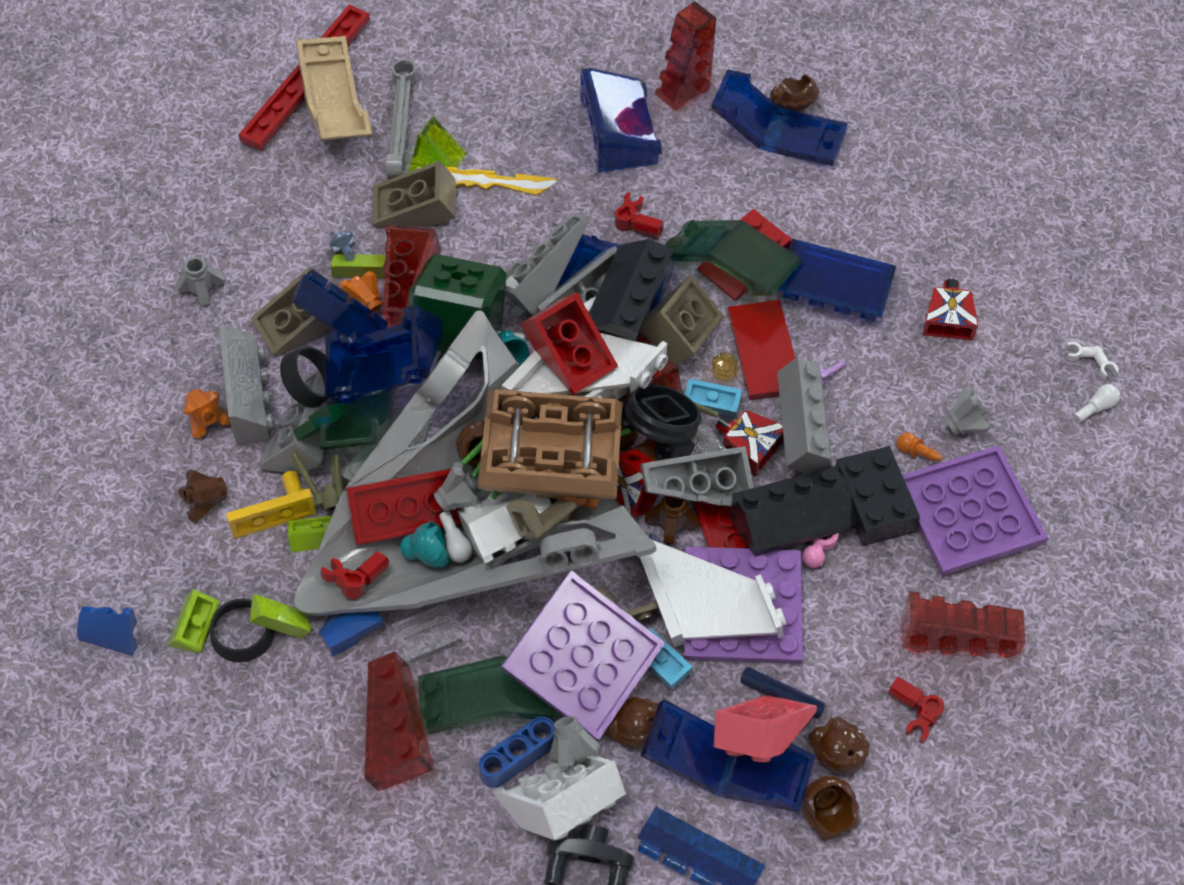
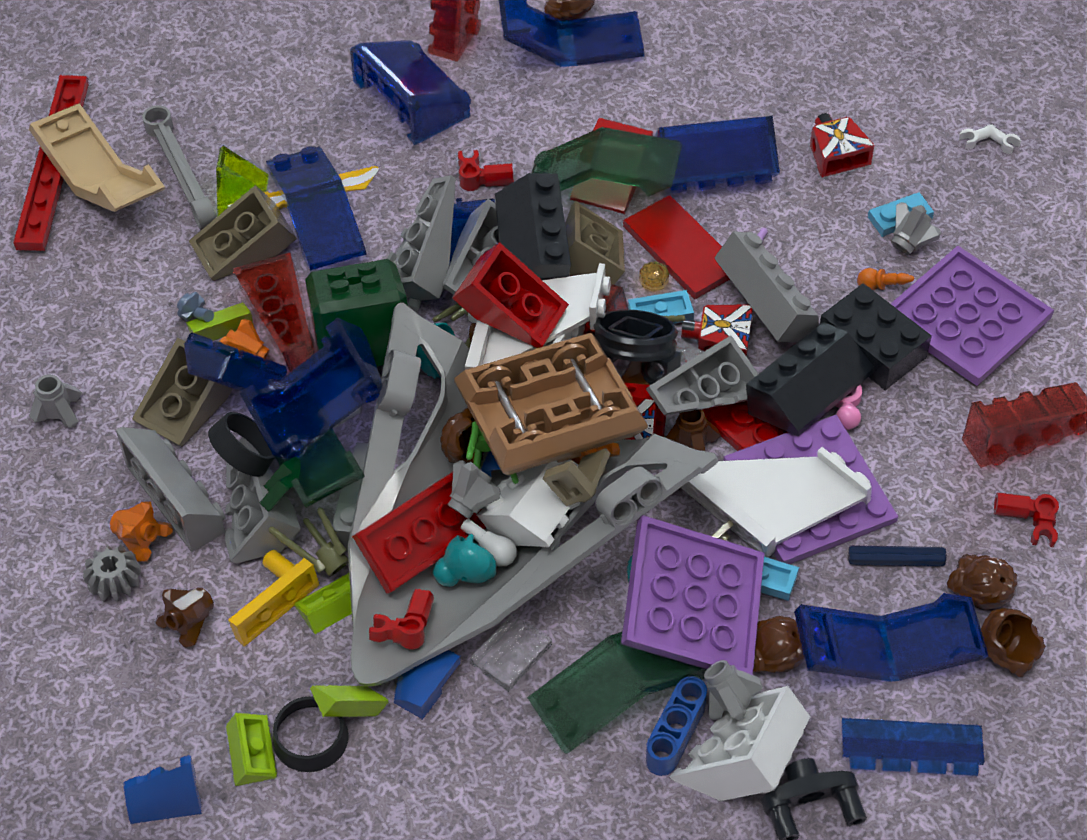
camera: 25 degrees left, 5 degrees down
(166, 437) = (112, 572): none -> light grey gear
(394, 726) = (542, 762): clear red wedge -> none
(484, 196) = (317, 207): none -> clear blue windscreen
(760, 726) = (906, 592): coral slope -> none
(985, 392) = (885, 216): none -> medium azure plate
(1104, 398) = (1023, 168): white piece -> none

